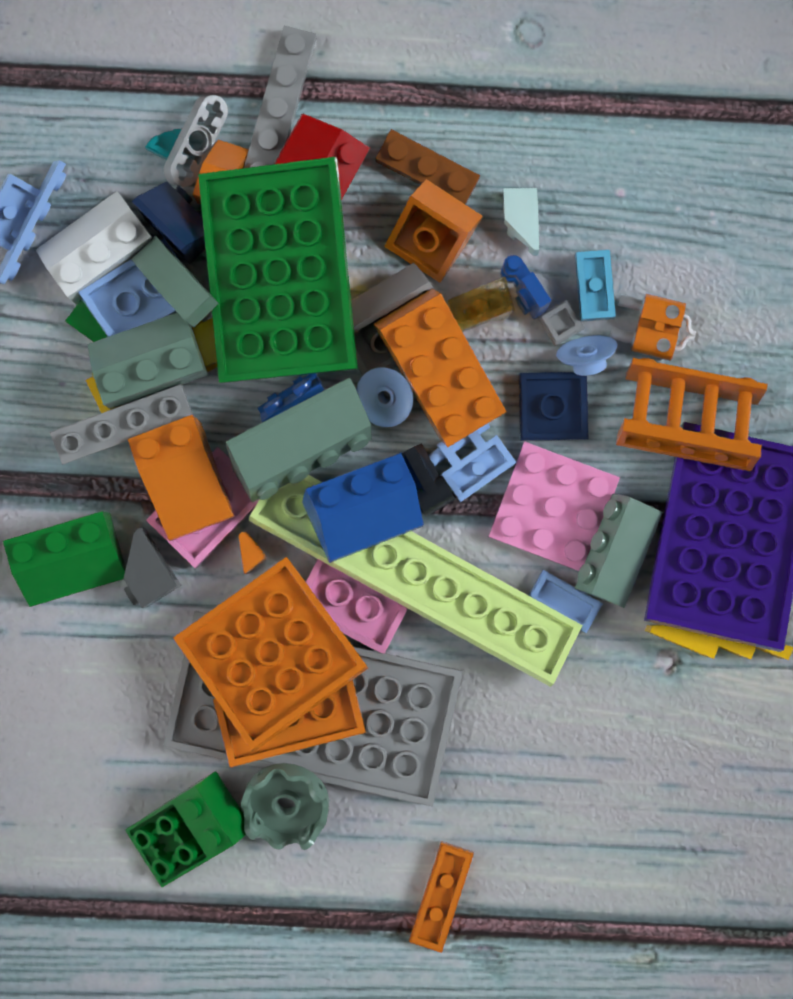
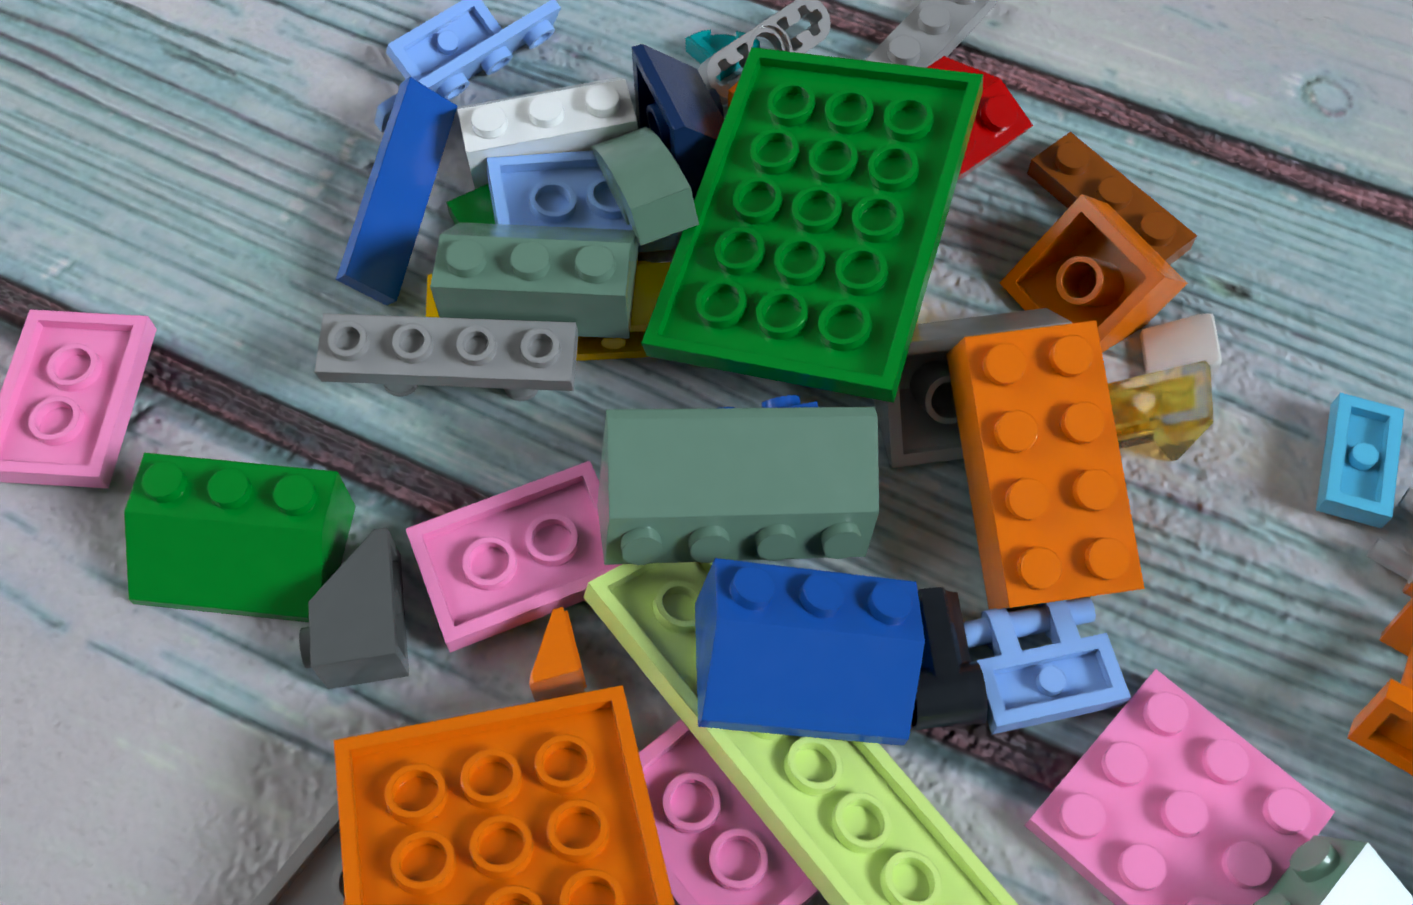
camera: 25 degrees right, 25 degrees down
(37, 328) = (397, 193): none -> blue tile
(181, 477) = (501, 473): orange slope -> none
(378, 408) = (908, 465): light blue piece -> none
(489, 254) = (1181, 344): none -> white slope
(521, 216) = (1253, 317): light aqua slope -> none
(531, 294) = (1248, 404): blue plate -> none
(553, 406) = (1228, 634): dark blue tile -> none
(561, 322) = (1278, 500): light grey tile -> none
(587, 354) = (1323, 565): light blue piece -> none

